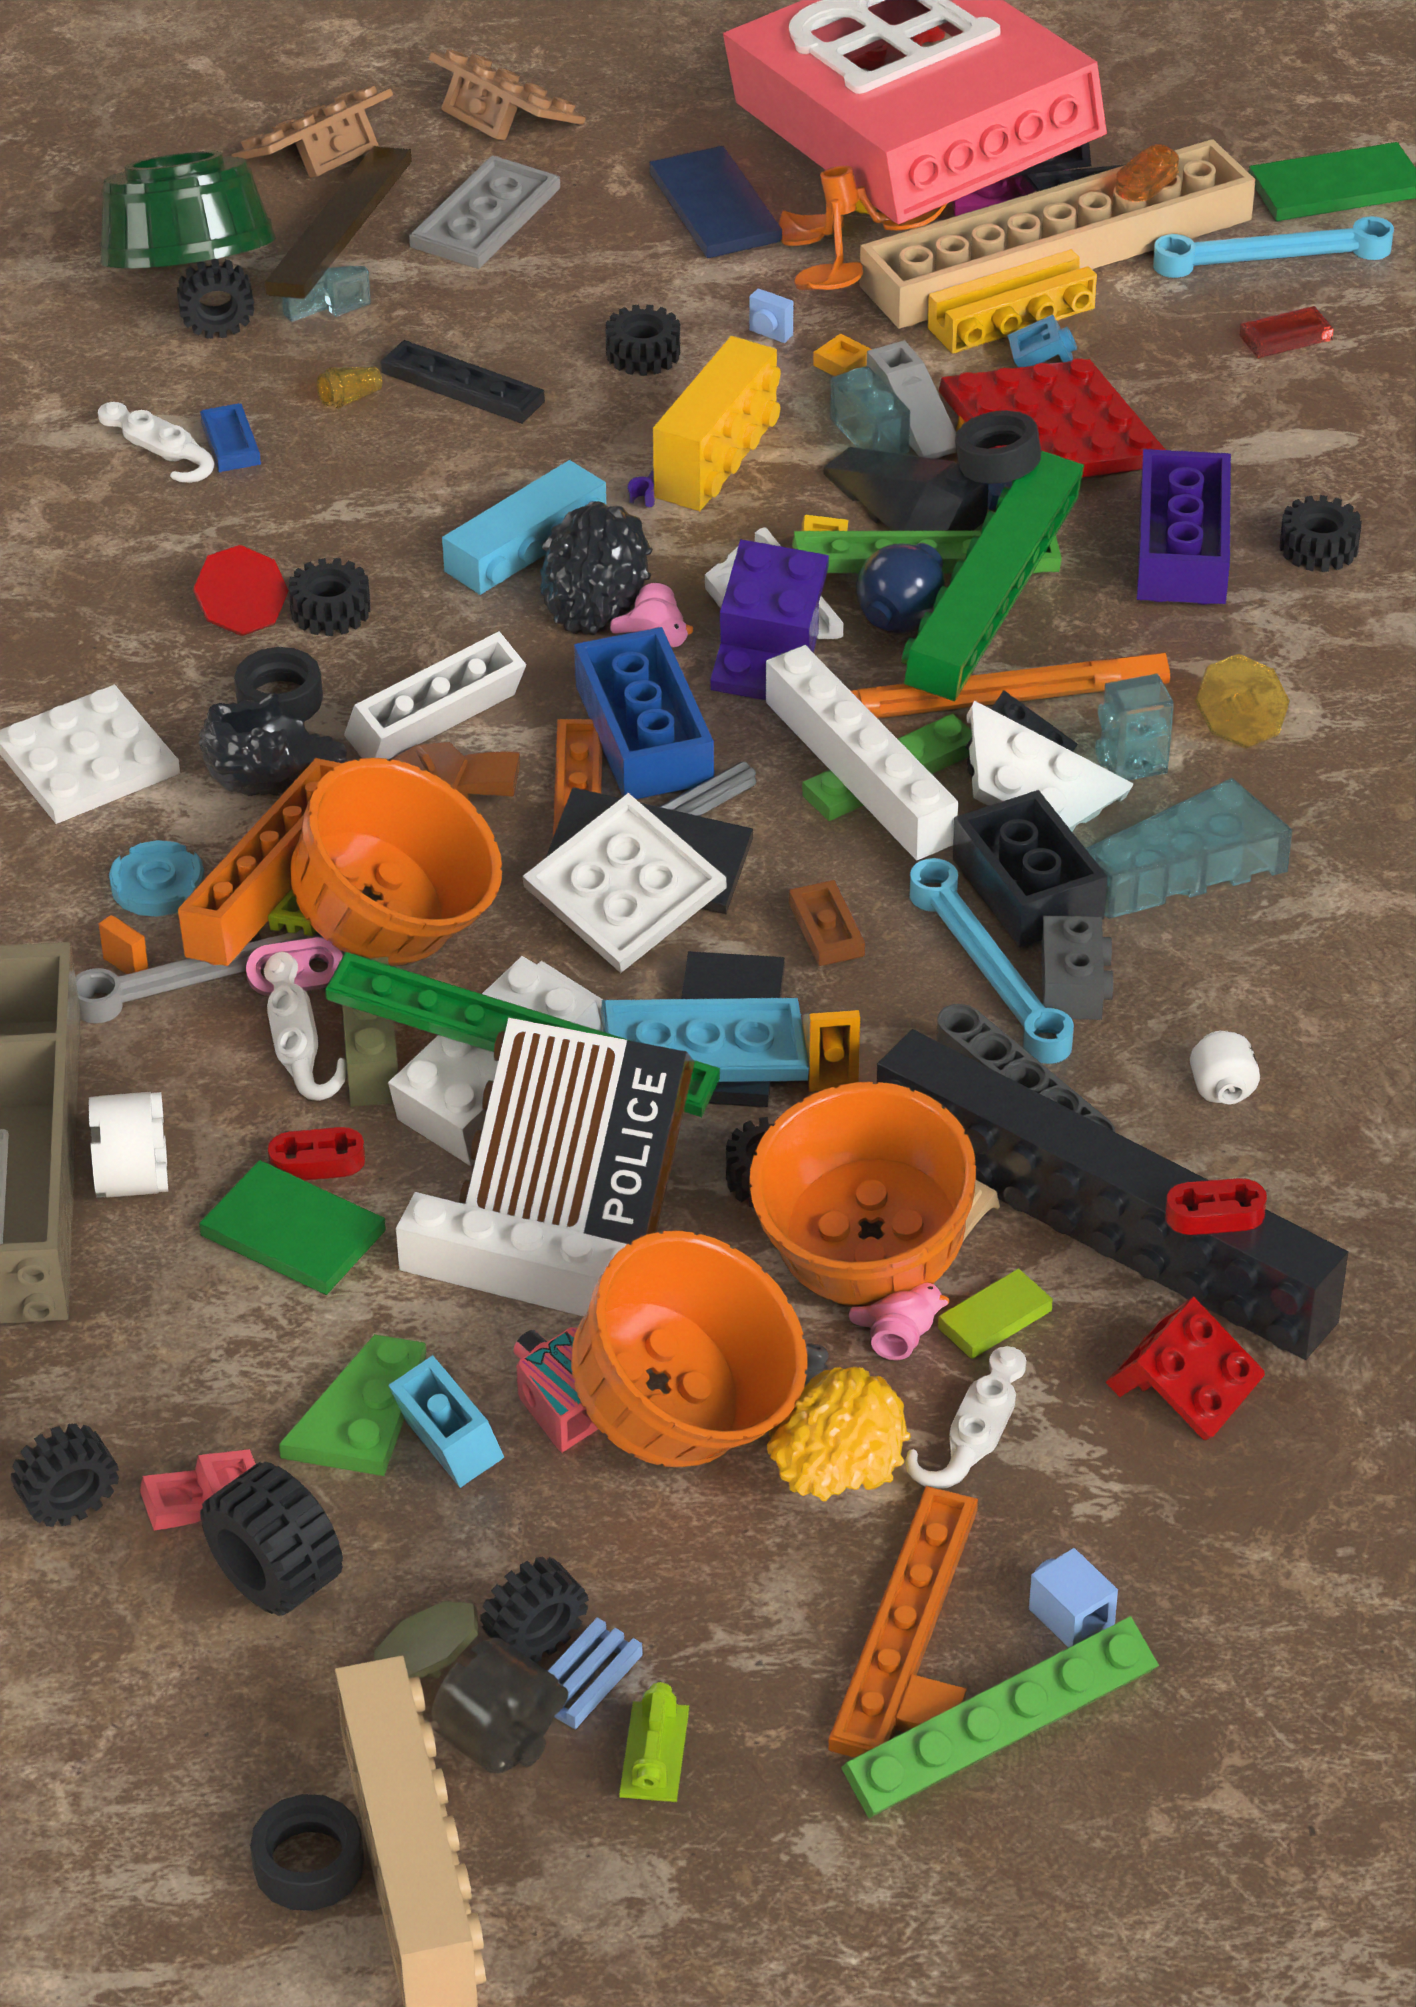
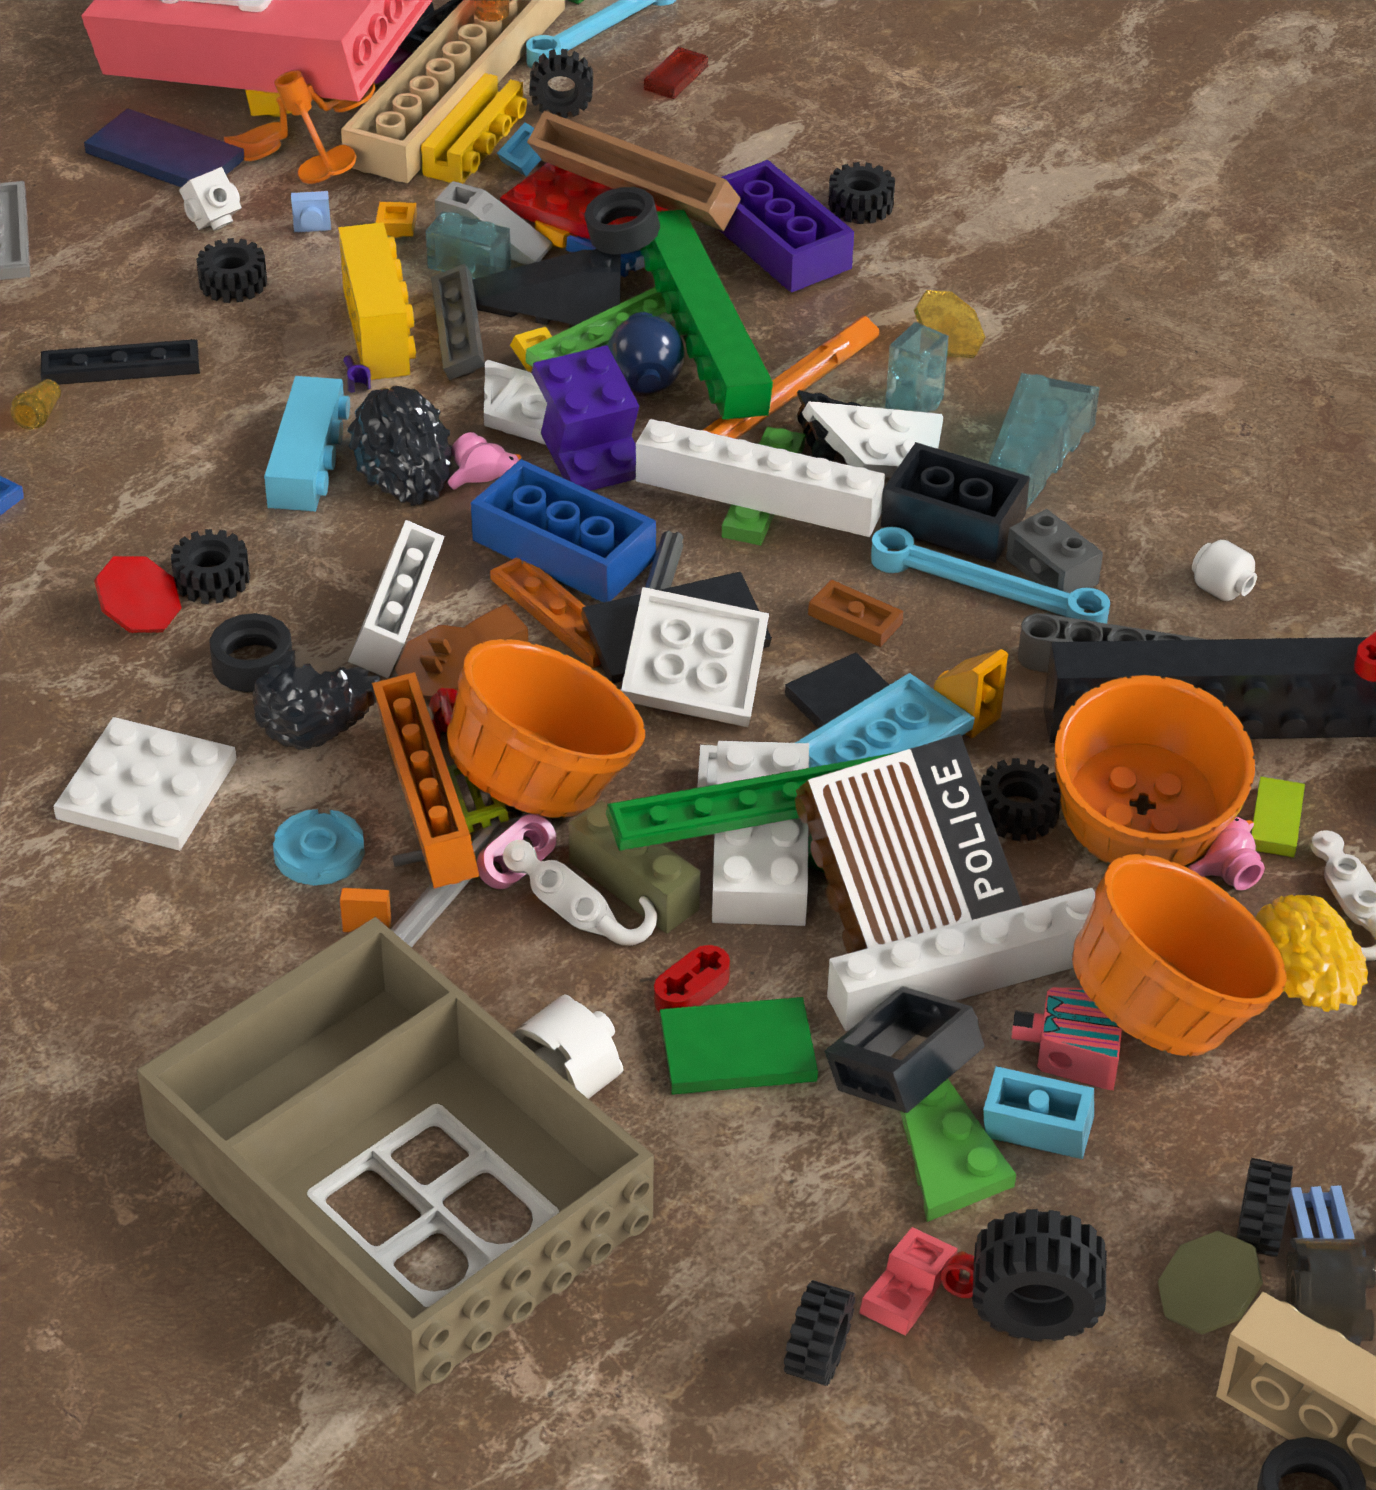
camera: 40 degrees left, 0 degrees up
(400, 1303) = (863, 1059): none -> black window
(684, 250) = (210, 200): none -> white brick
(783, 479) = (457, 322): none -> dark grey plate
(1075, 406) = (623, 164): none -> medium nougat brick
(1148, 280) = (561, 66): none -> black tyre

